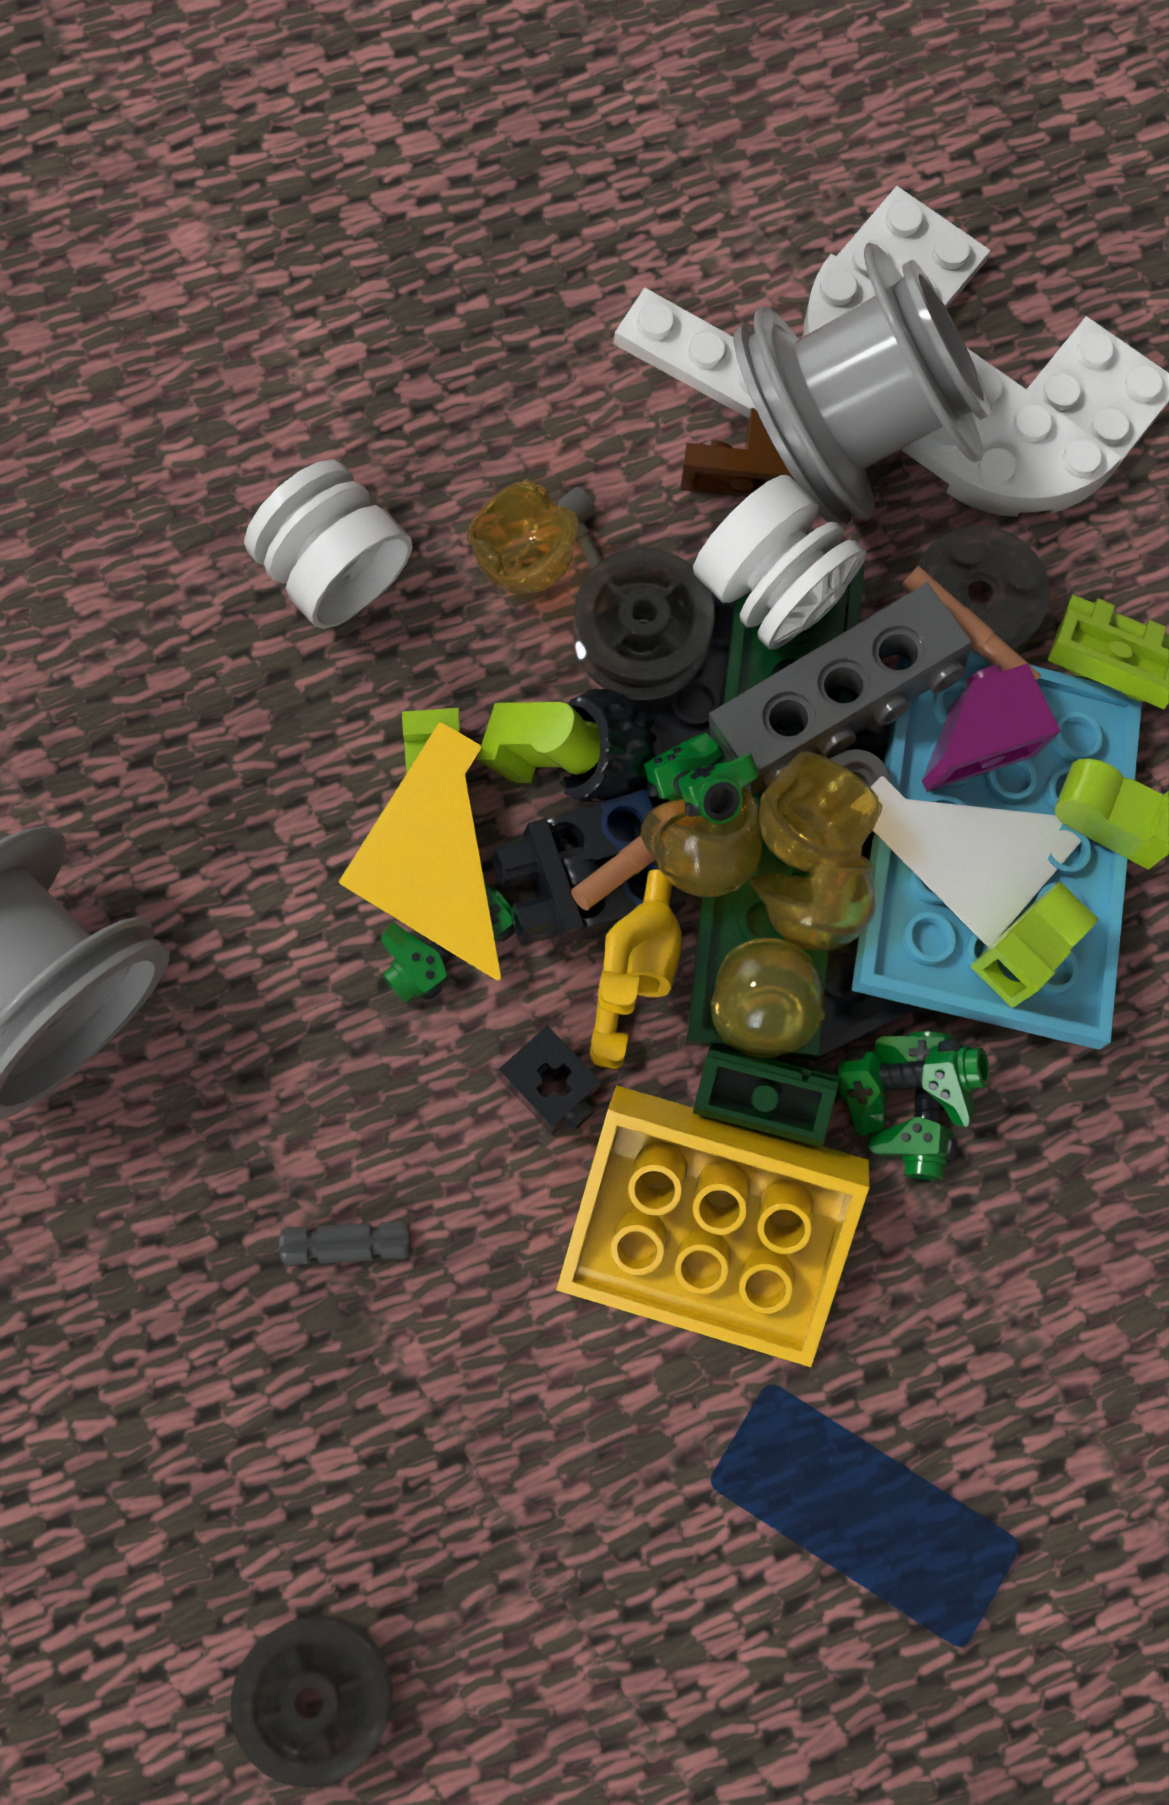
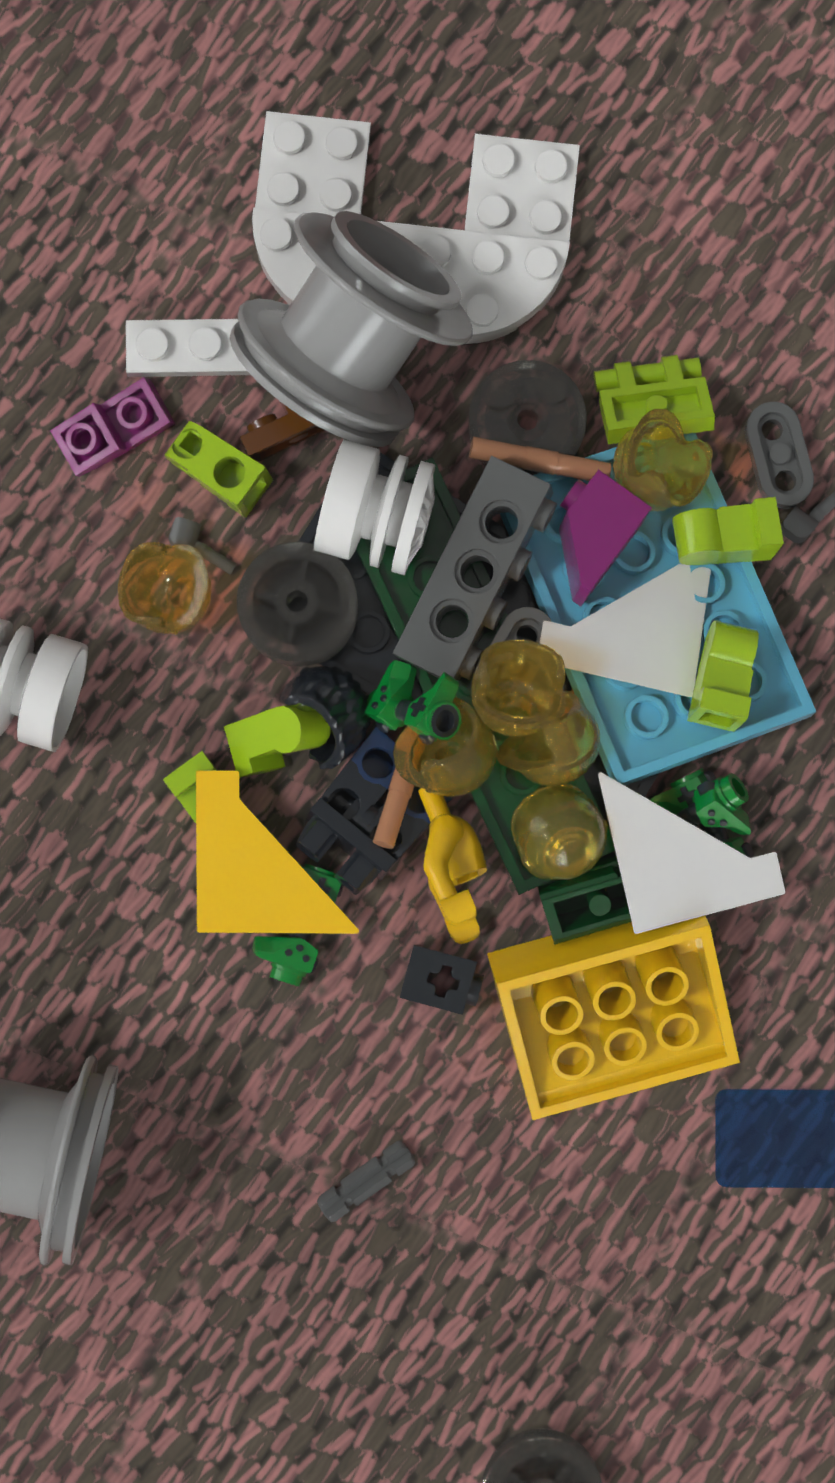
camera: 30 degrees left, 10 degrees up
(557, 377) = (112, 428): none -> magenta slope
(649, 469) = (219, 467): none -> lime leg
(867, 1109) = (677, 869): none -> white sticker
(1093, 699) = (660, 463): none -> clear yellow helmet

